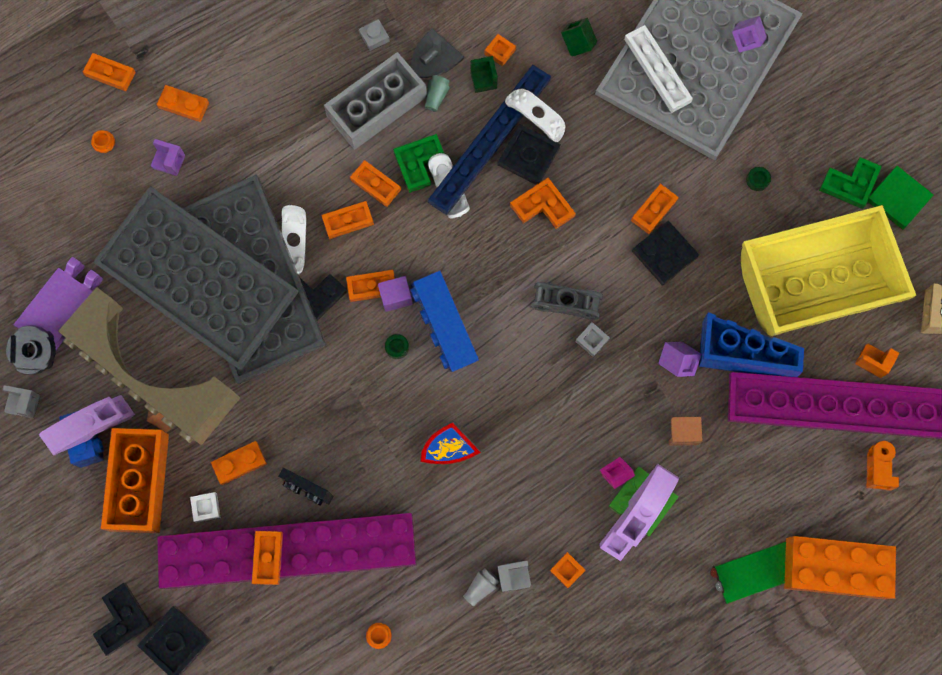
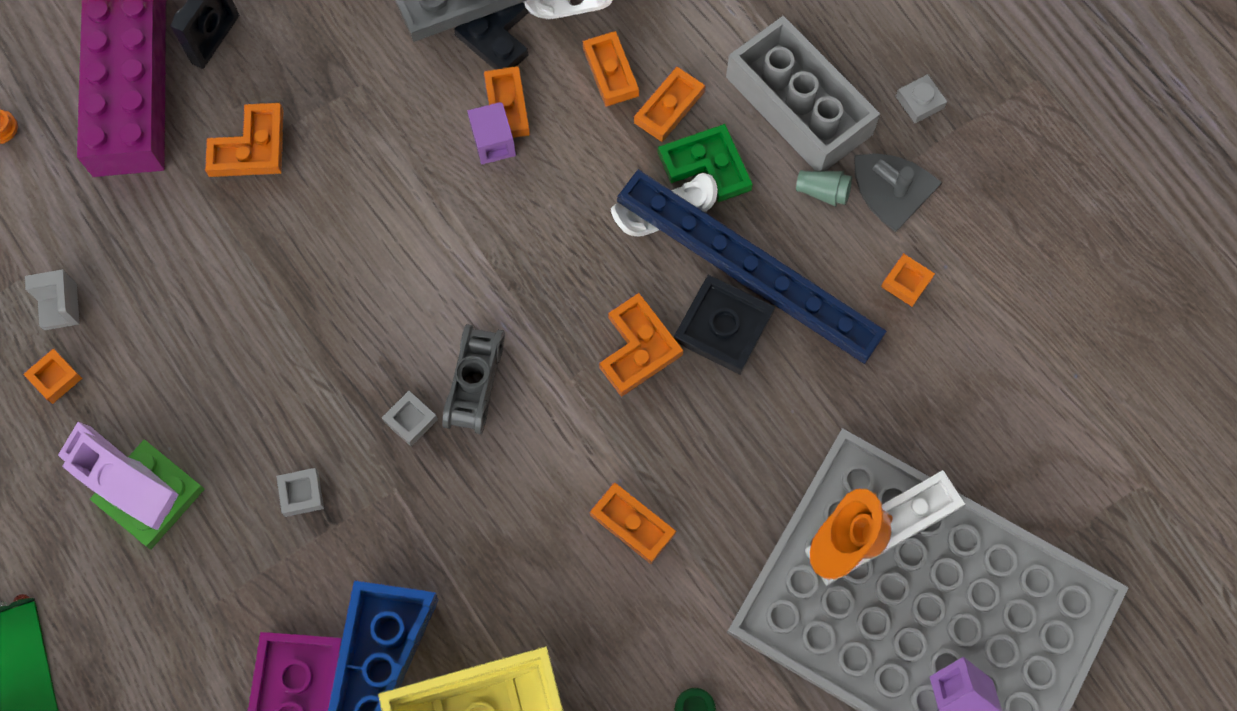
camera: 90 degrees right, 5 degrees down
(396, 346) = (414, 141): dark green tile -> none
(402, 448) = (254, 152): none -> orange plate
(444, 321) = (443, 195): blue wedge -> none
(448, 446) = (253, 205): shield -> none
(481, 586) = (44, 254): light grey cone -> none
(483, 74) = (861, 255): dark green panel -> none
(525, 101) = (777, 354): white piece -> none
(579, 37) = (942, 405): dark green panel -> none
(617, 472) = (191, 450): dark pink plate -> none
(641, 404) = (300, 492): none -> light grey plate
(665, 253) = (557, 541): black plate -> none
(671, 82) = (851, 533): none -> orange piece
(679, 359) = (370, 555): medium lavender panel -> none
(685, 431) = (246, 559): nougat panel -> none

